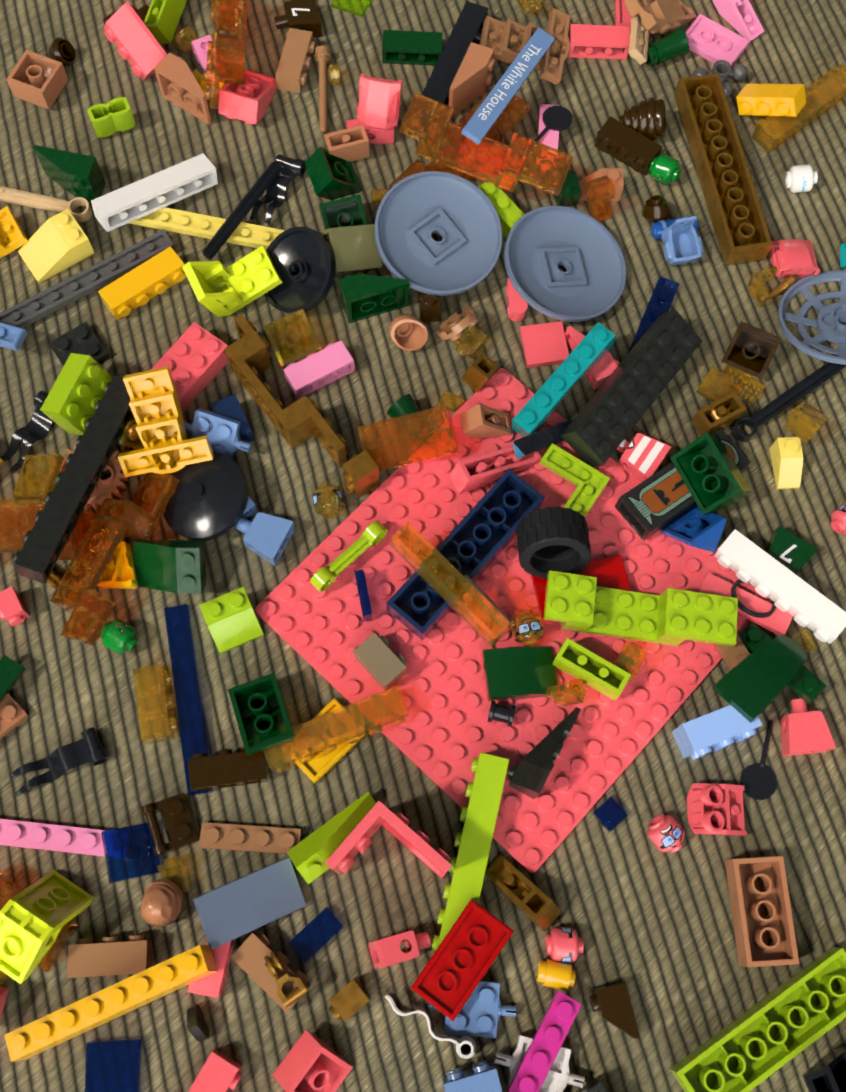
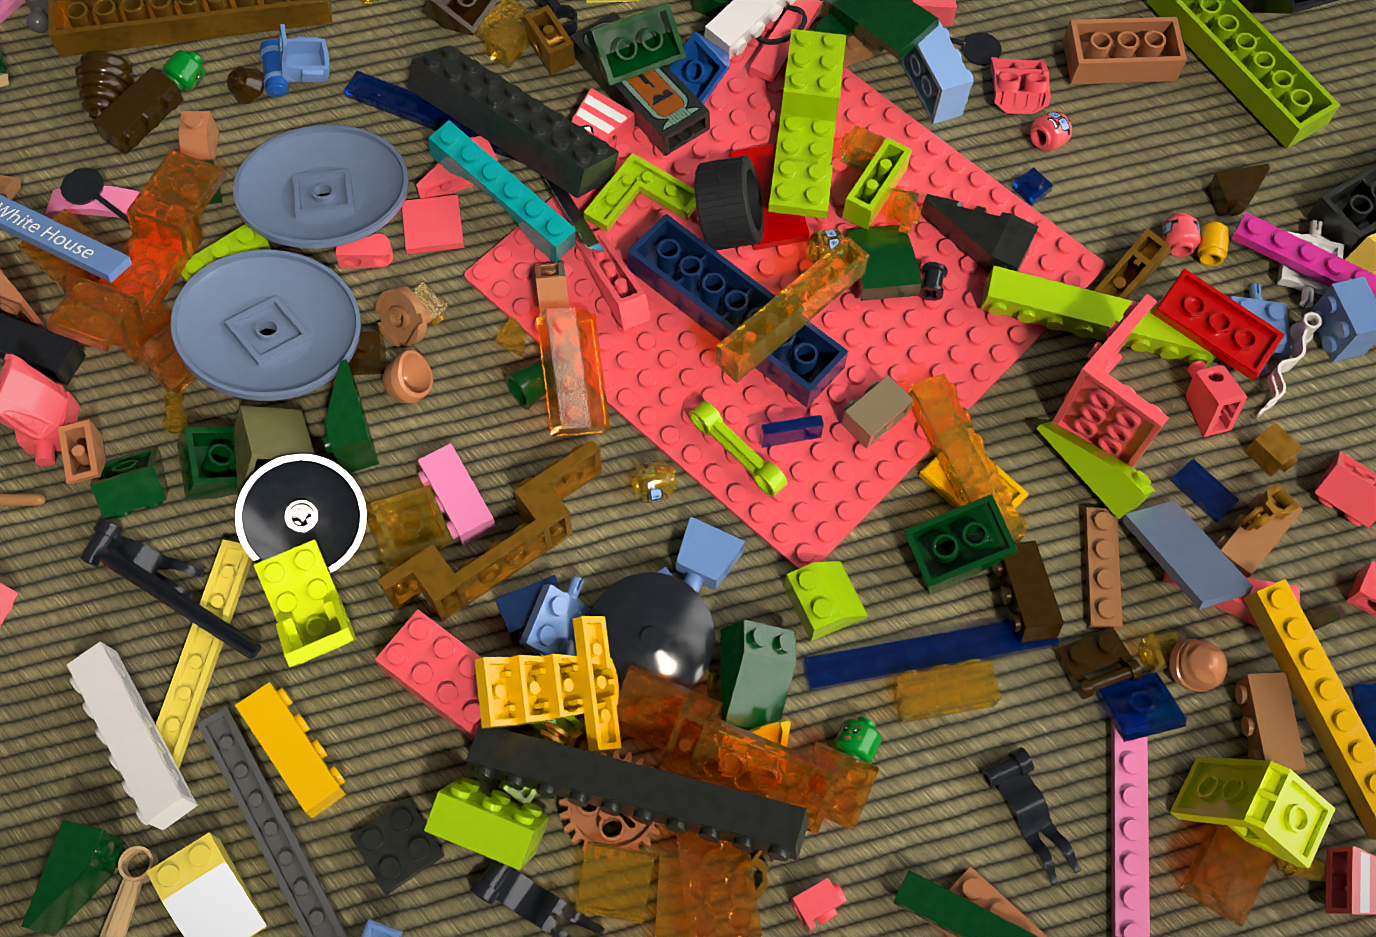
camera: 90 degrees left, 5 degrees down
(360, 474) = (623, 433): pearl gold brick -> none
(479, 372) = (475, 292): pearl gold brick -> none
(599, 197) = (219, 135): clear orange plate -> none

